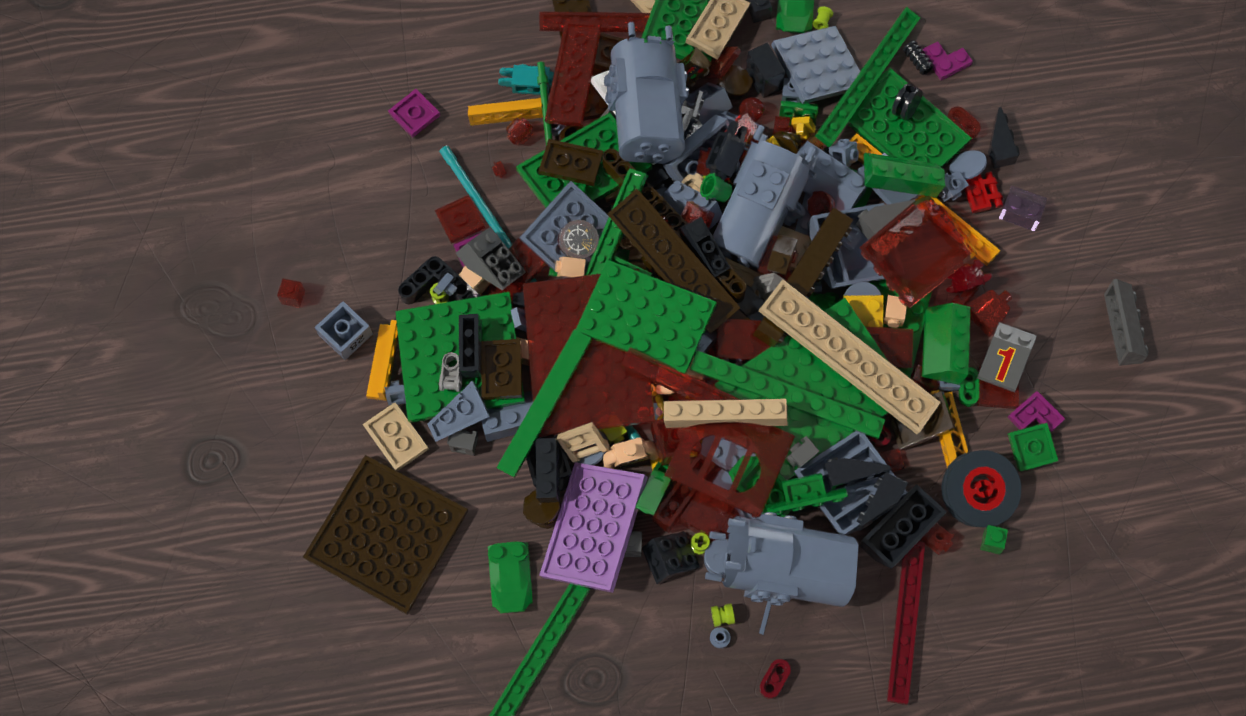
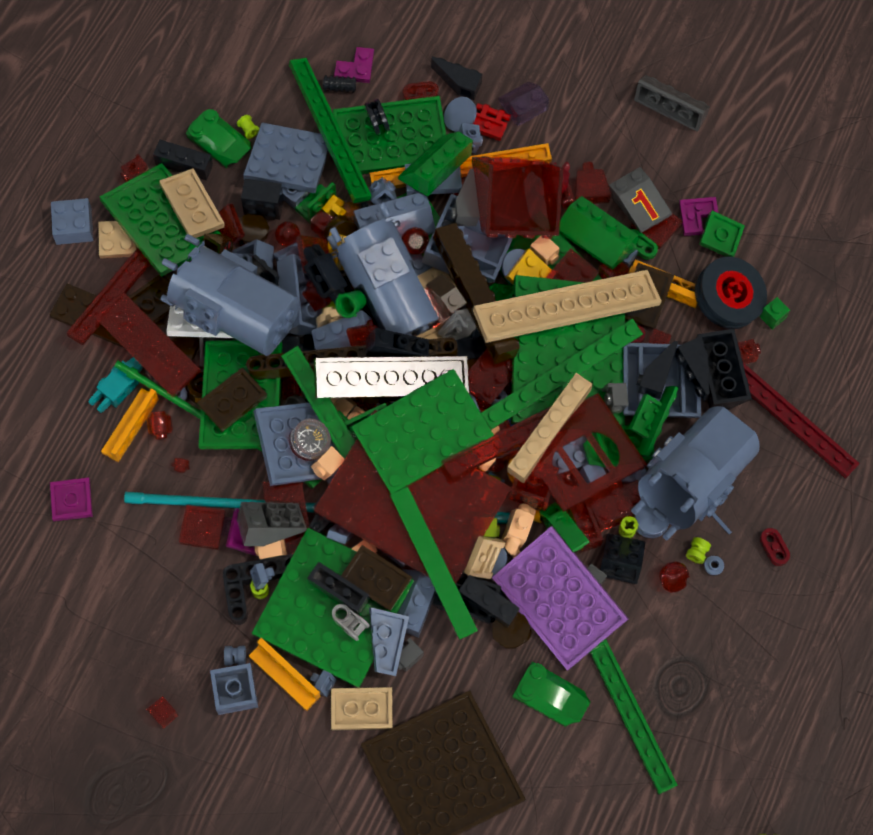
camera: 60 degrees left, 0 degrees up
(372, 313) = (234, 655): none -> sand blue wheel
(682, 609) = (674, 576): none -> clear red hair

